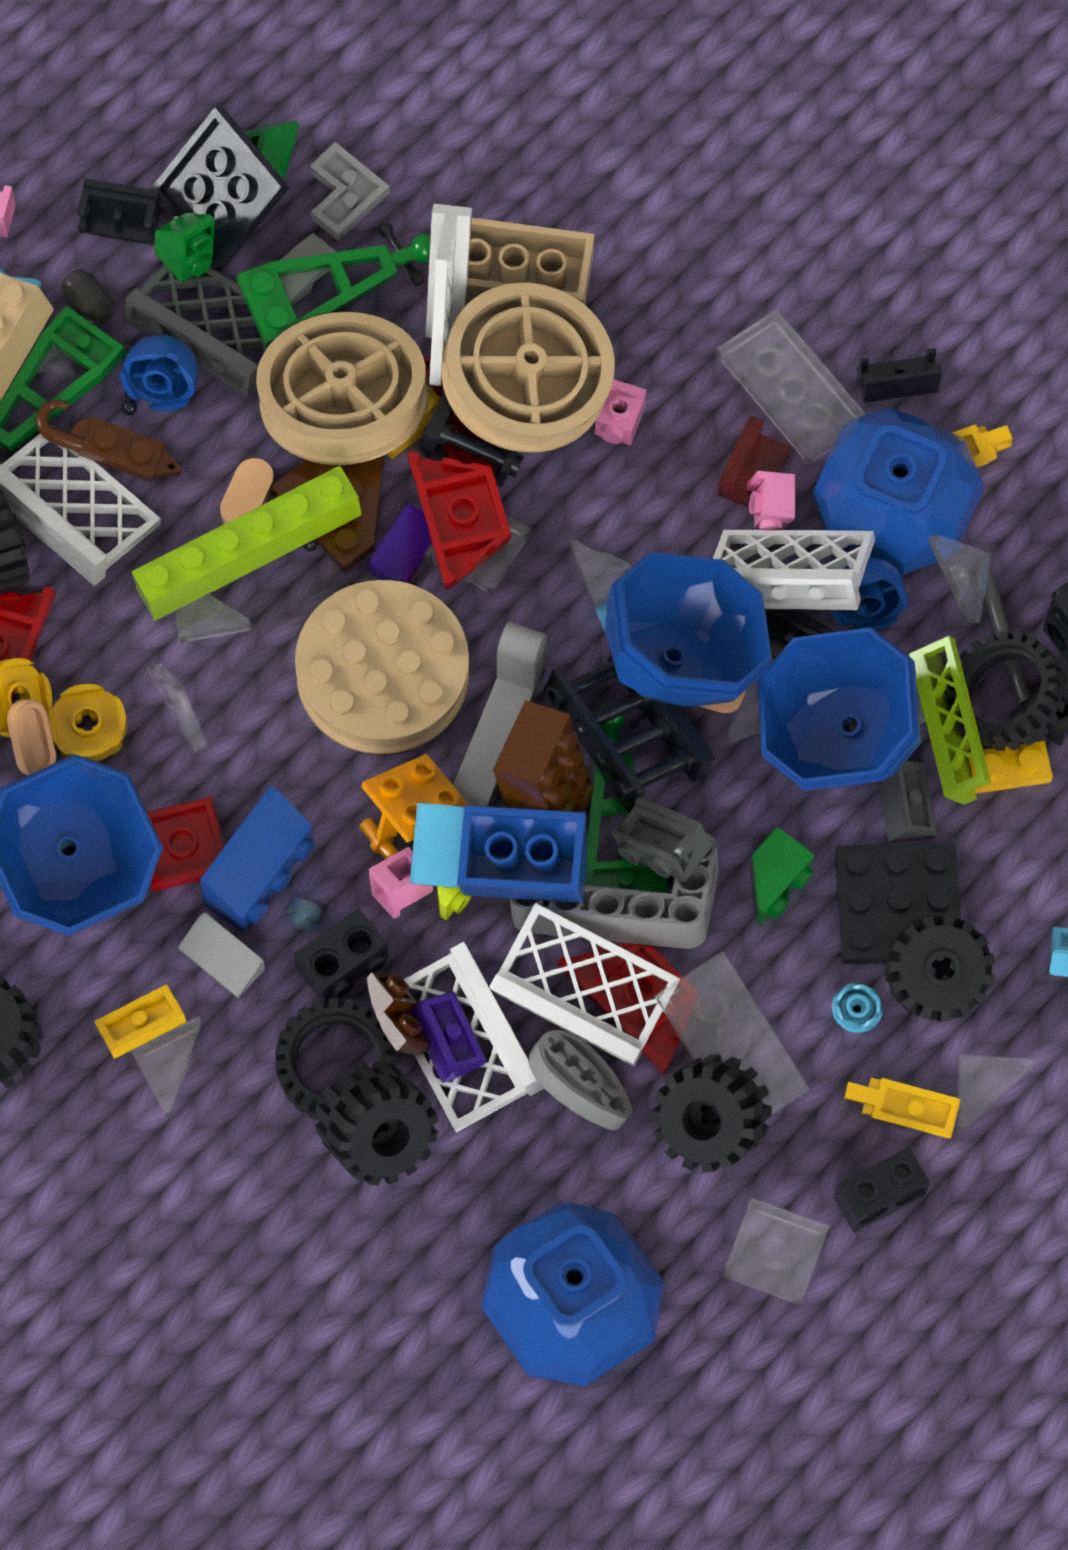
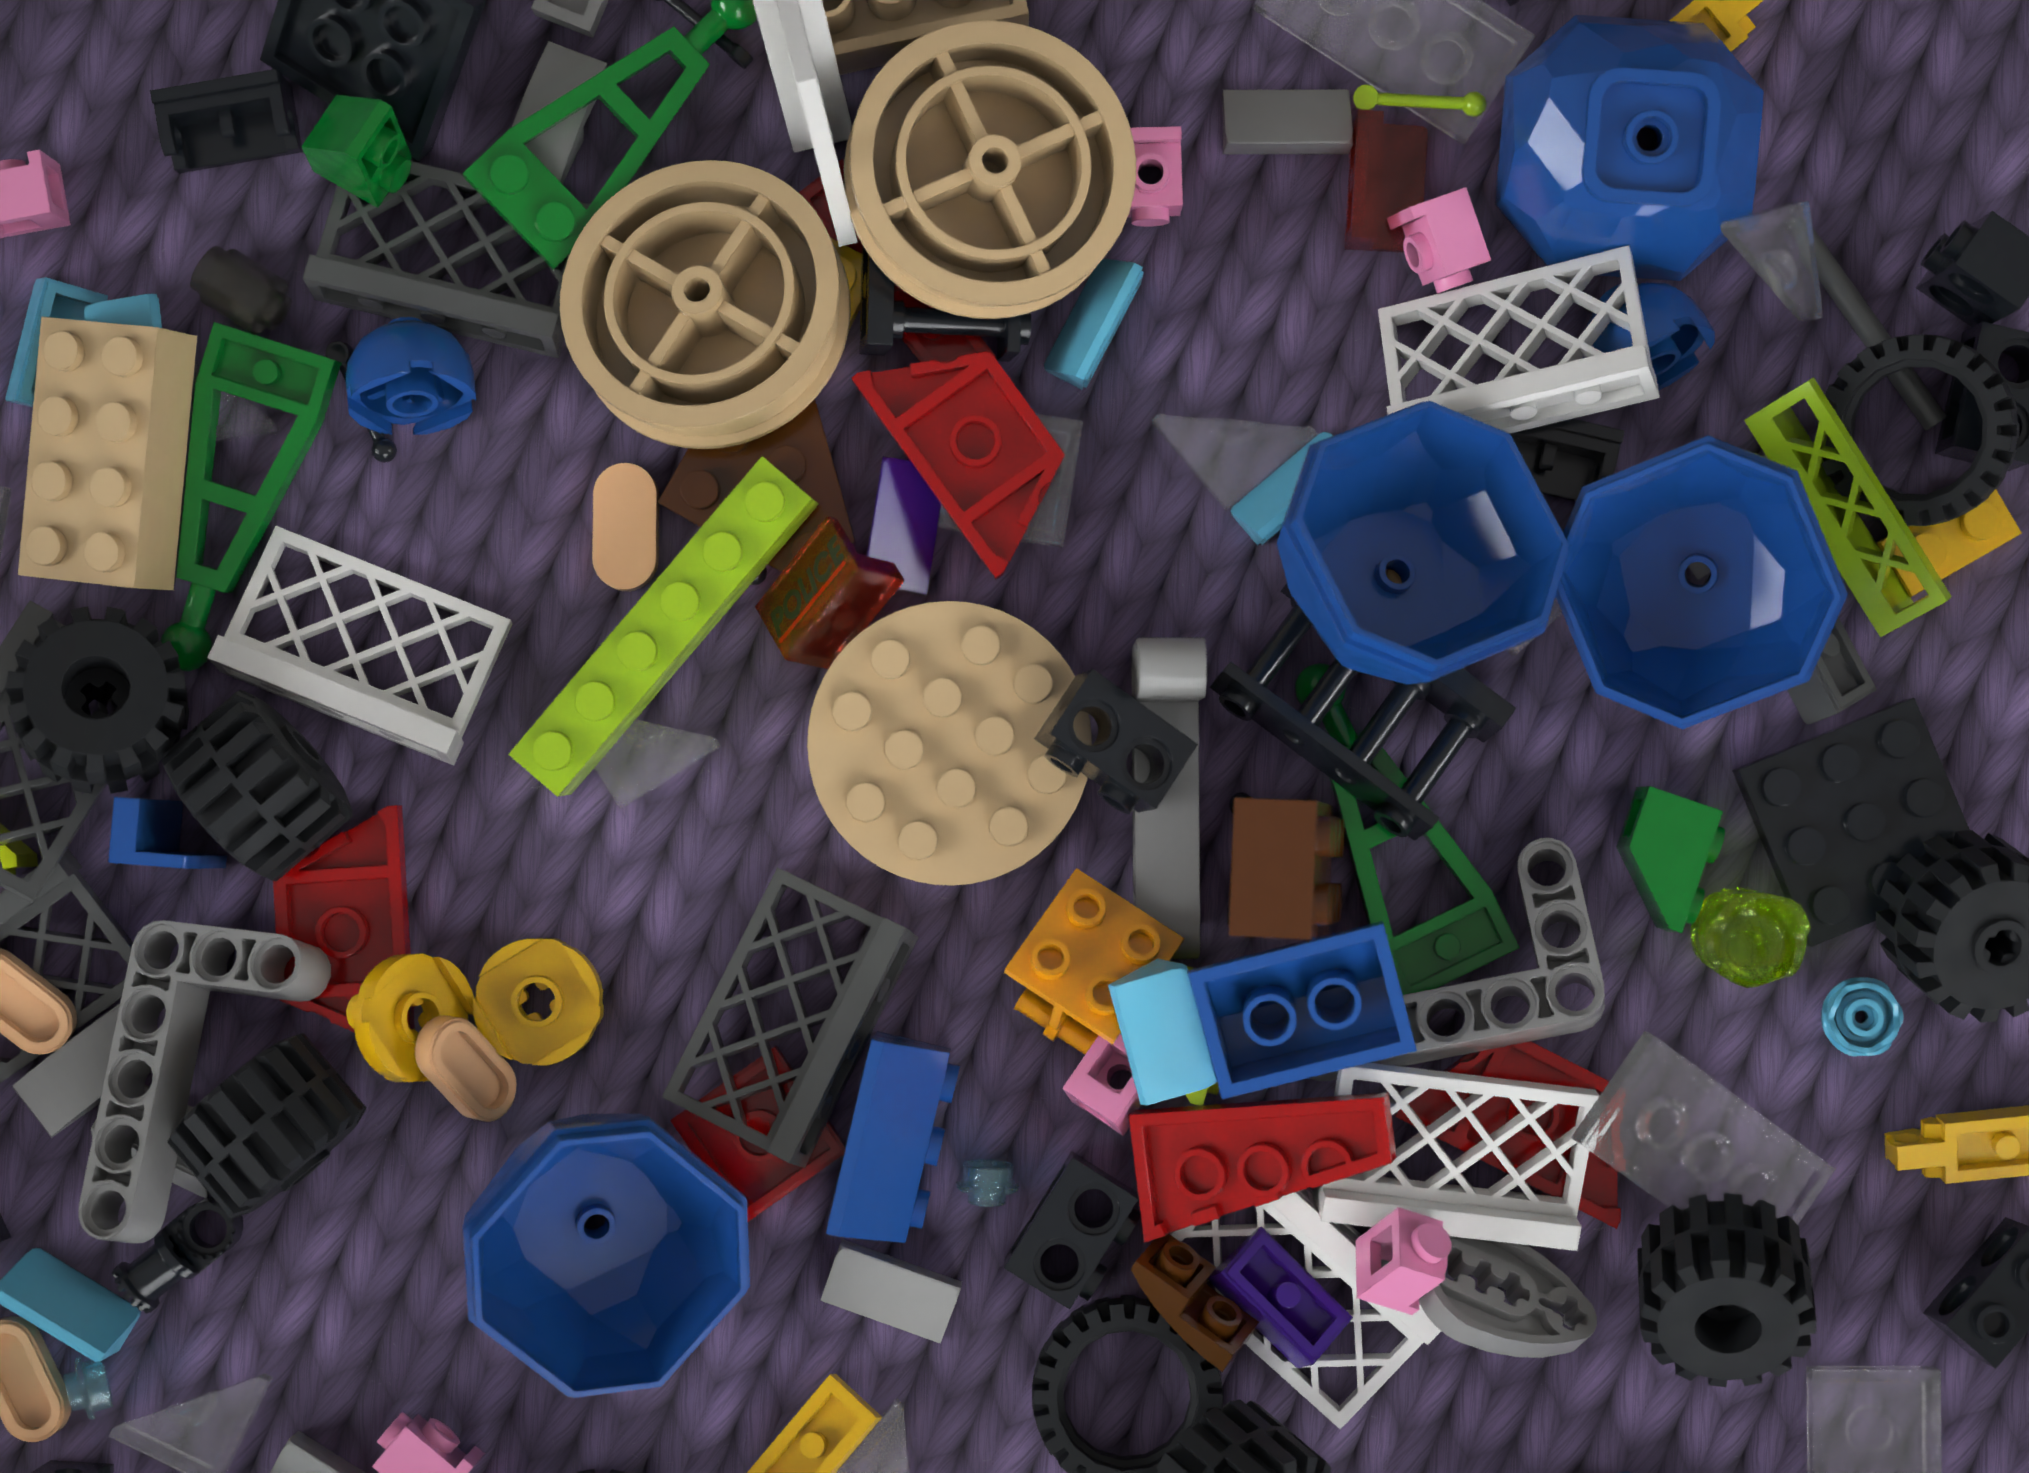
camera: 20 degrees left, 20 degrees up
(109, 445) = (377, 529): reddish brown plate -> none
(179, 705) = (660, 917): clear tile -> none
(222, 820) = (839, 1041): none -> dark grey fence
(345, 561) = (826, 597): none -> clear red panel
(459, 935) = (1246, 1154): none -> red wing
(485, 680) = (1121, 727): none -> black brick
(526, 1023) = (1416, 1258): none -> bright pink brick
(559, 481) = (1094, 321): none -> medium azure slope
(662, 840) = (1494, 887): dark grey hinge -> none
(708, 416) = (1287, 122): none -> light grey slope
(808, 933) = (1750, 935): none -> clear neon green hair
(818, 439) = (1367, 98): none -> lime hinge

